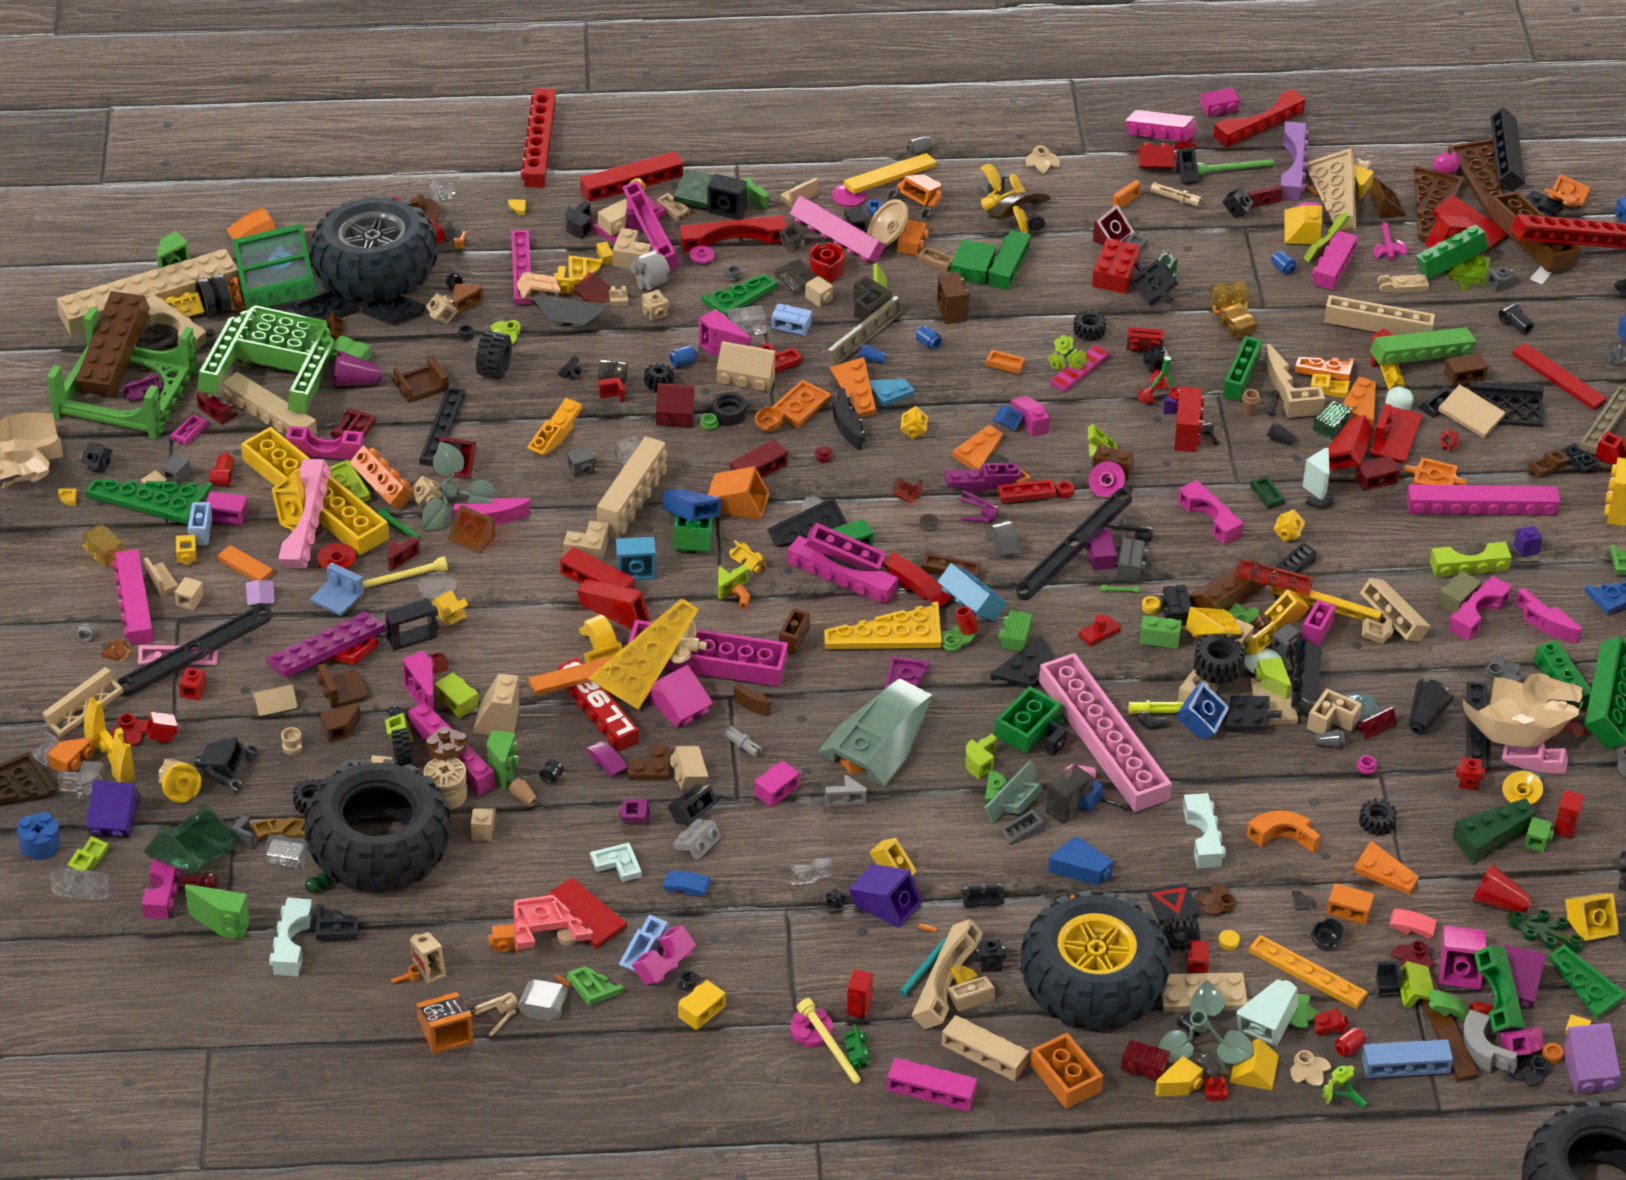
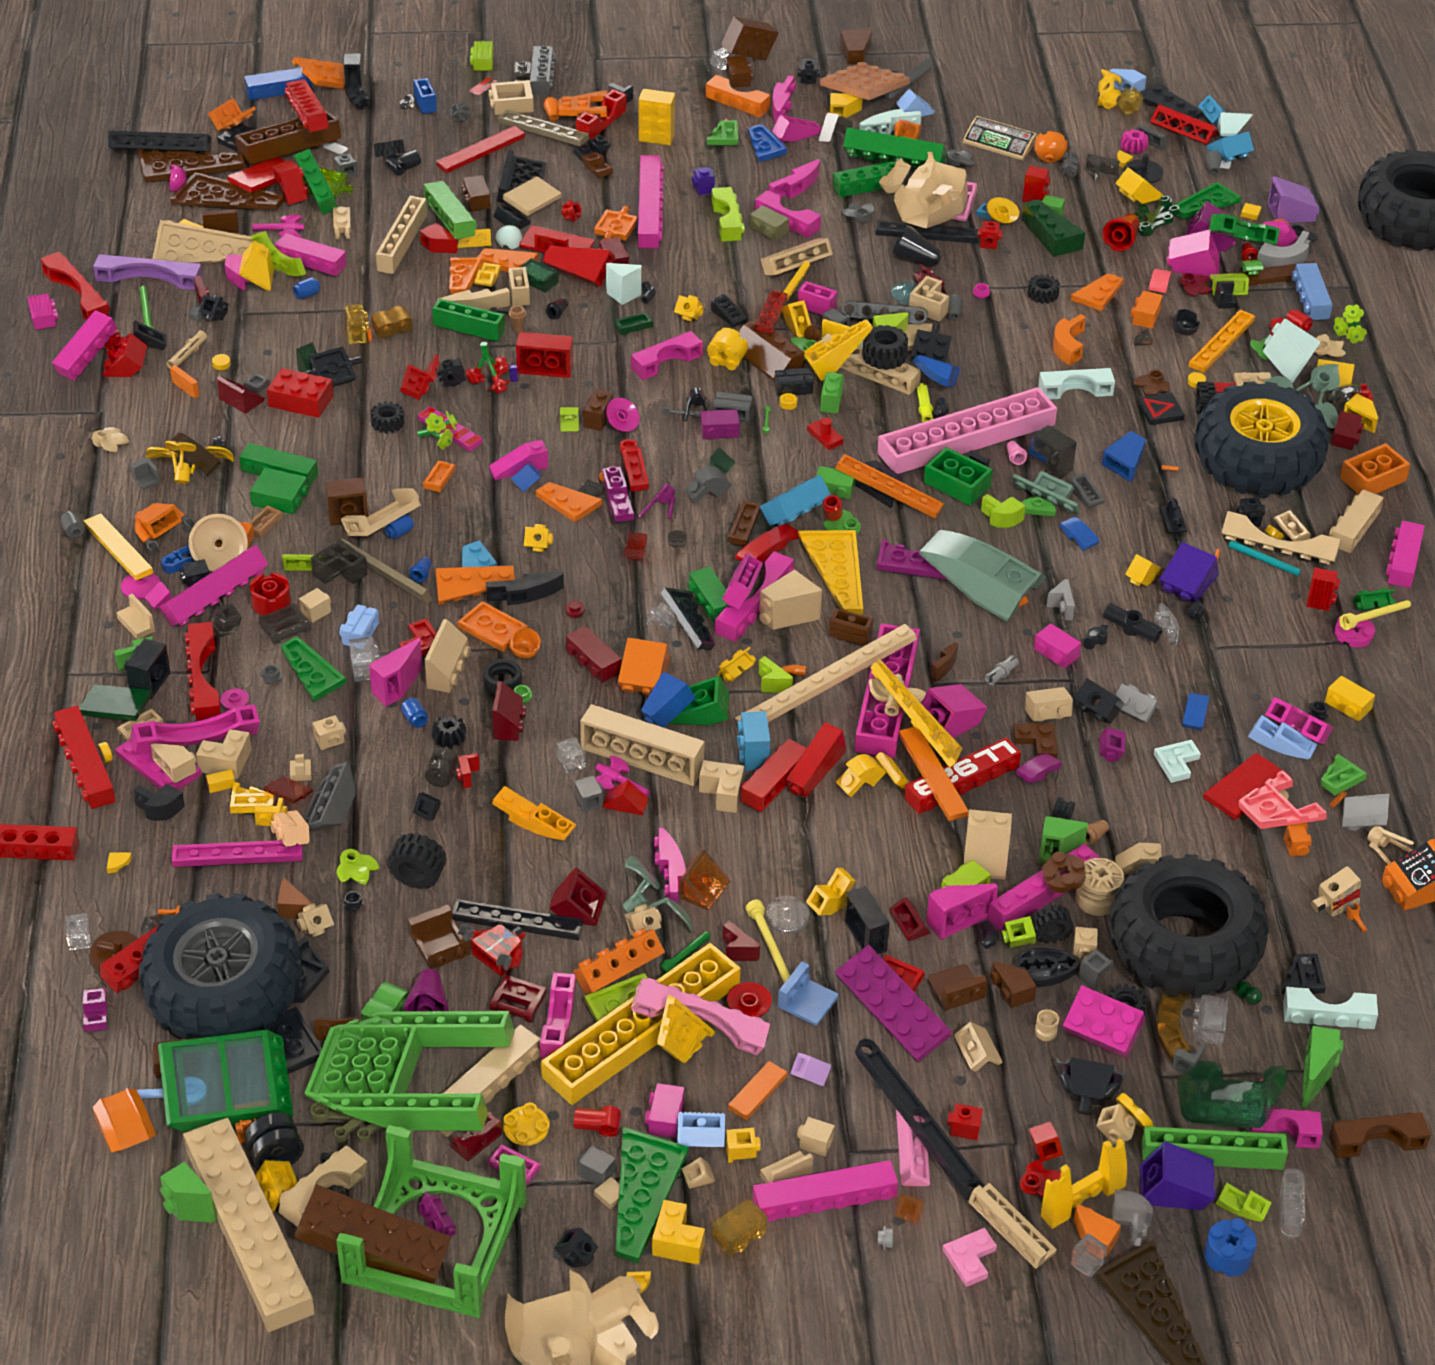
camera: 90 degrees left, 0 degrees up
(64, 679) = (965, 1255): none -> bright pink plate
(104, 509) = (676, 1239): none -> yellow brick
(139, 834) = (1224, 1147): none -> bright green brick
(145, 970) = (1405, 1130): none -> reddish brown arch
(166, 531) = (698, 1173): none -> tan slope
(224, 433) = (526, 1125): none -> yellow dish
(283, 771) = (1104, 1021): none -> dark pink brick
(352, 743) = (1056, 961): none -> black piece
(404, 411) = (495, 946): none -> red torso
(575, 488) = (626, 799): none -> red slope
(605, 479) = (613, 773): none -> dark pink piece
(650, 270) = (271, 732): light grey brick -> none
(717, 607) = (835, 673): none -> tan plate
(796, 818) = (1095, 636): none -> black piece
(812, 842) = (1132, 622): none -> black piece
(826, 586) = (790, 601): none -> tan slope
(831, 204) = (158, 596): none -> dark pink slope
(921, 310) = (359, 525): none -> tan panel
(955, 813) = (1080, 532): none -> blue slope
(1007, 667) = (889, 486): none -> orange tile
(1044, 549) = (721, 460): none -> clear green slope
(1065, 552) = (732, 441): black beam -> none
(1164, 218) = (221, 362): none -> yellow tile
(1217, 550) = (727, 348): none -> yellow brick
(1377, 631) = (819, 269): tan bracket -> none
(1531, 303) = (389, 148): none -> black tyre

